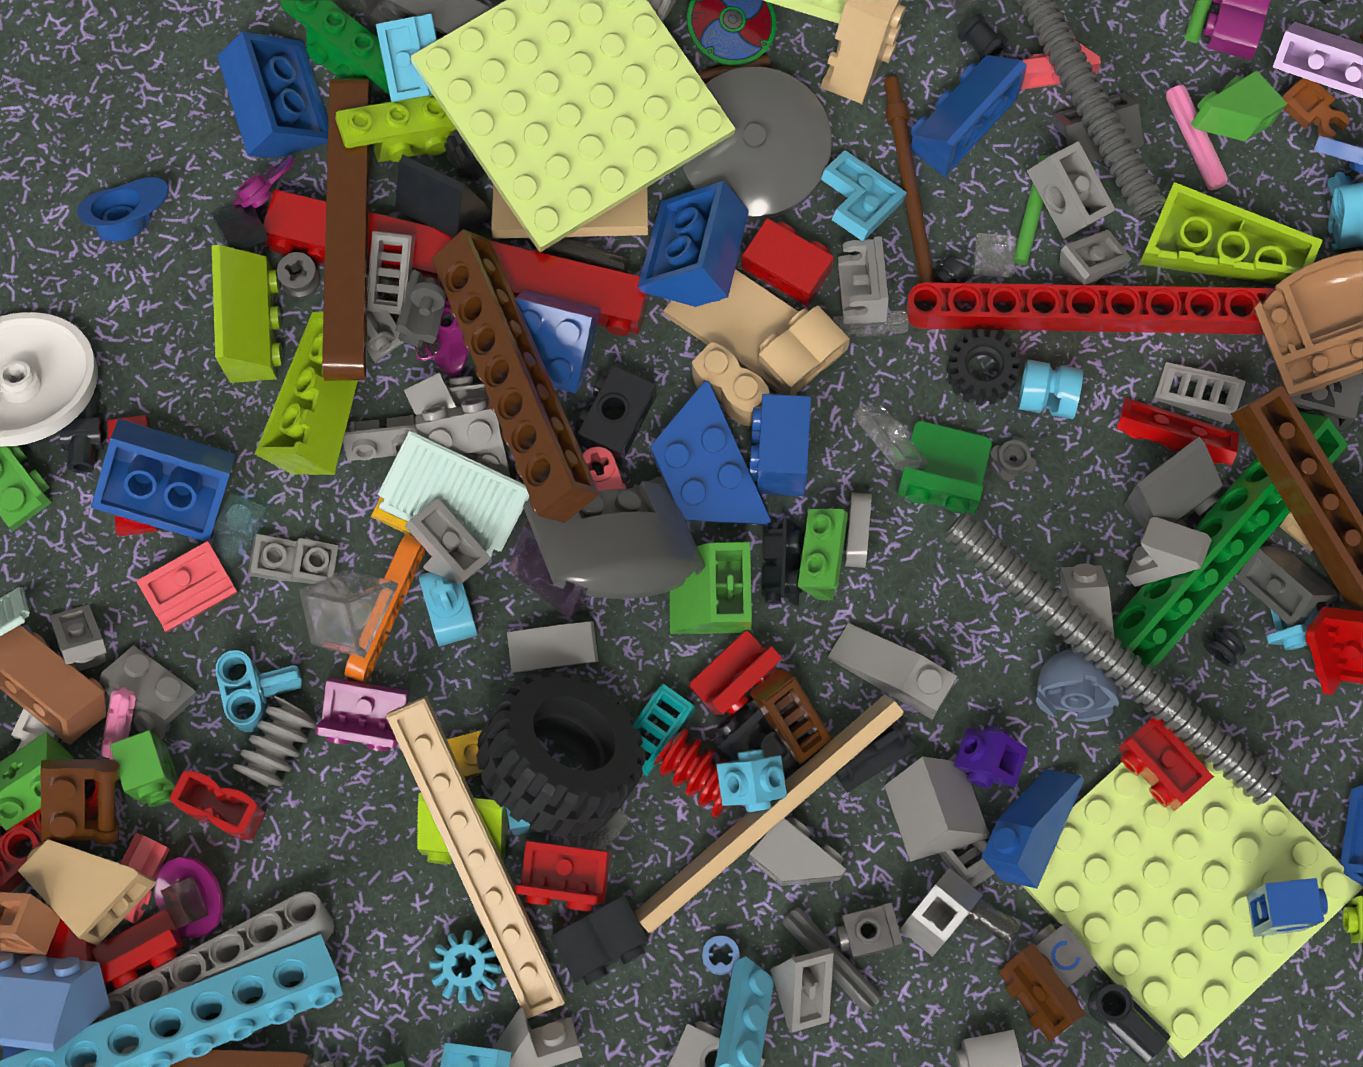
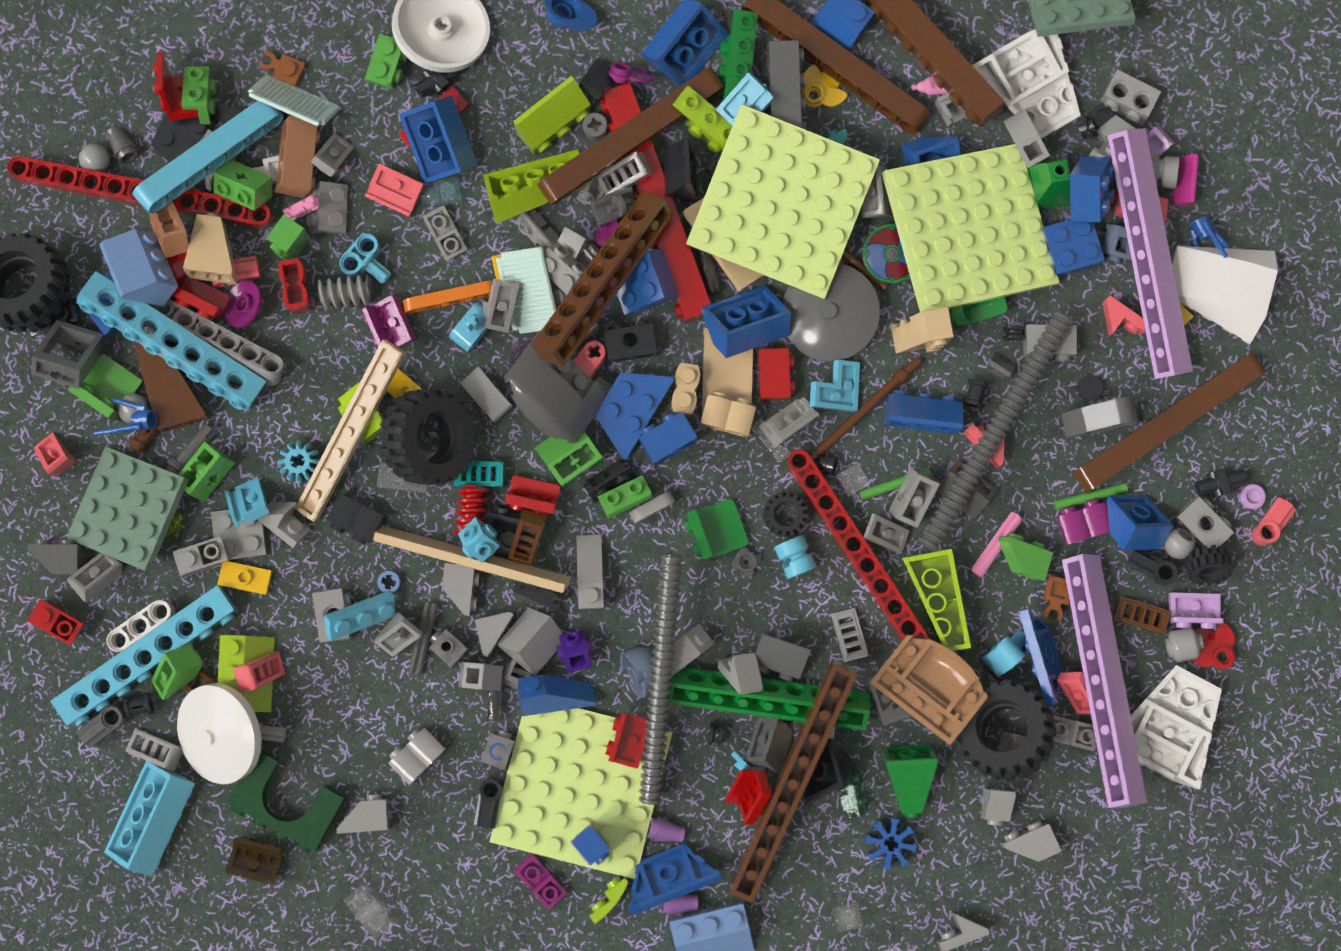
camera: 50 degrees right, 10 degrees up
(65, 800) = (242, 213): reddish brown plate -> none
(184, 902) = (237, 304): clear smoke slope -> none
(346, 611) = (434, 279): clear slope -> none
(564, 874) = (372, 479): red bracket -> none
(886, 856) = (491, 630): none -> light grey slope
(890, 437) = (711, 491): clear plate -> none
(1041, 992) = (469, 759): reddish brown plate -> none
(1176, 430) = (816, 635): red plate -> none
(1284, 1023) = (540, 881): none -> magenta slope
(1319, 802) = (663, 830): none -> medium lavender cone

